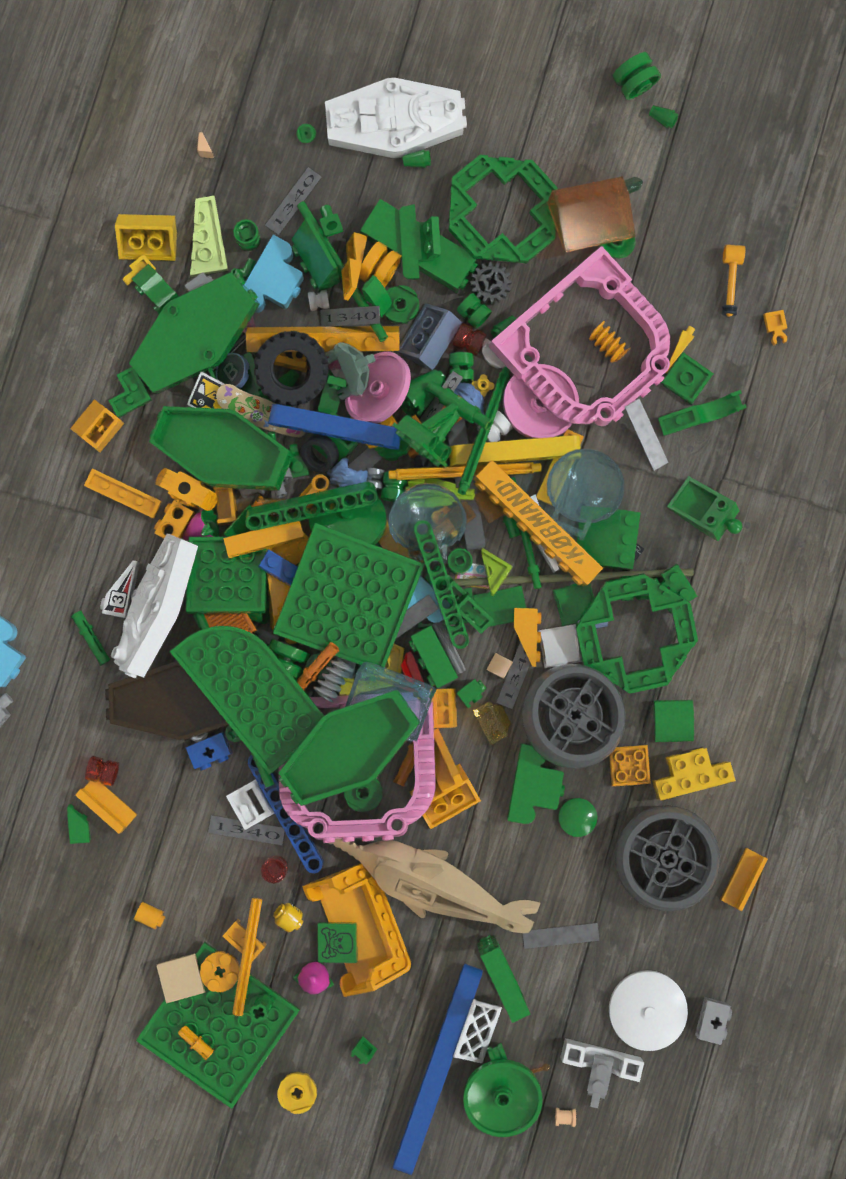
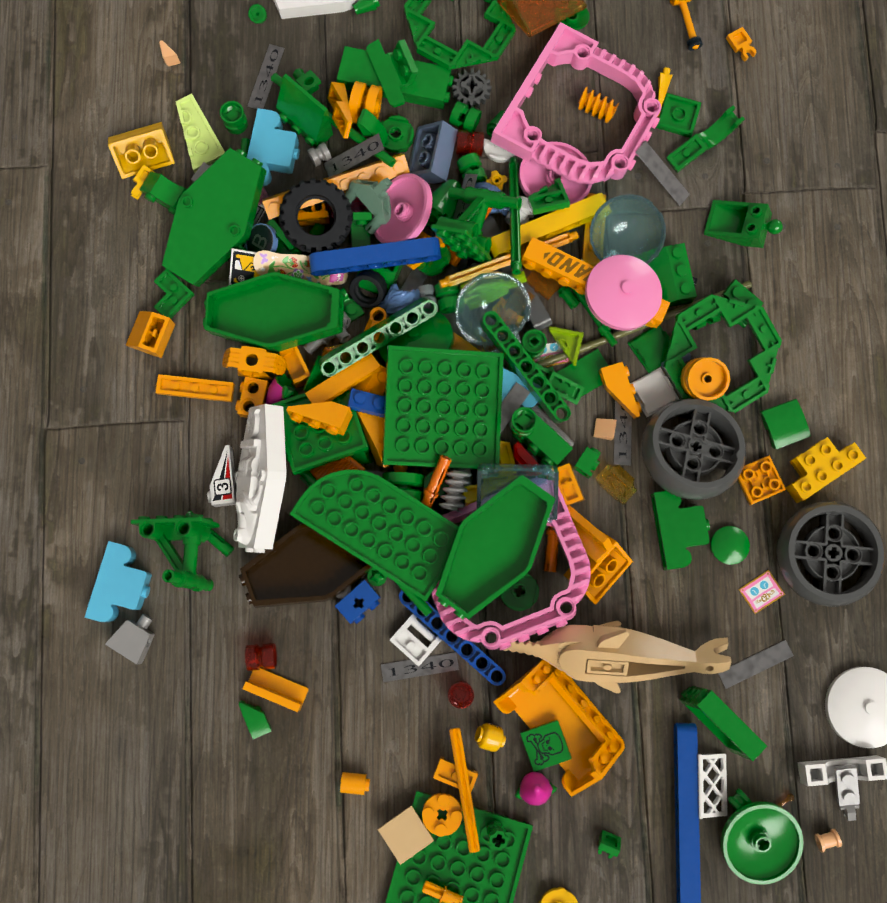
camera: 15 degrees left, 5 degrees down
(75, 634) = (193, 533): none -> green plate
(235, 567) = (325, 415): none -> light orange slope
(418, 638) = (523, 422): none -> green wheel
(523, 425) = (549, 198): none -> green wing
(560, 544) = (623, 292): none -> bright pink dish
(592, 871) = (761, 591): none -> sticker
(619, 656) = (716, 379): none -> light orange wheel

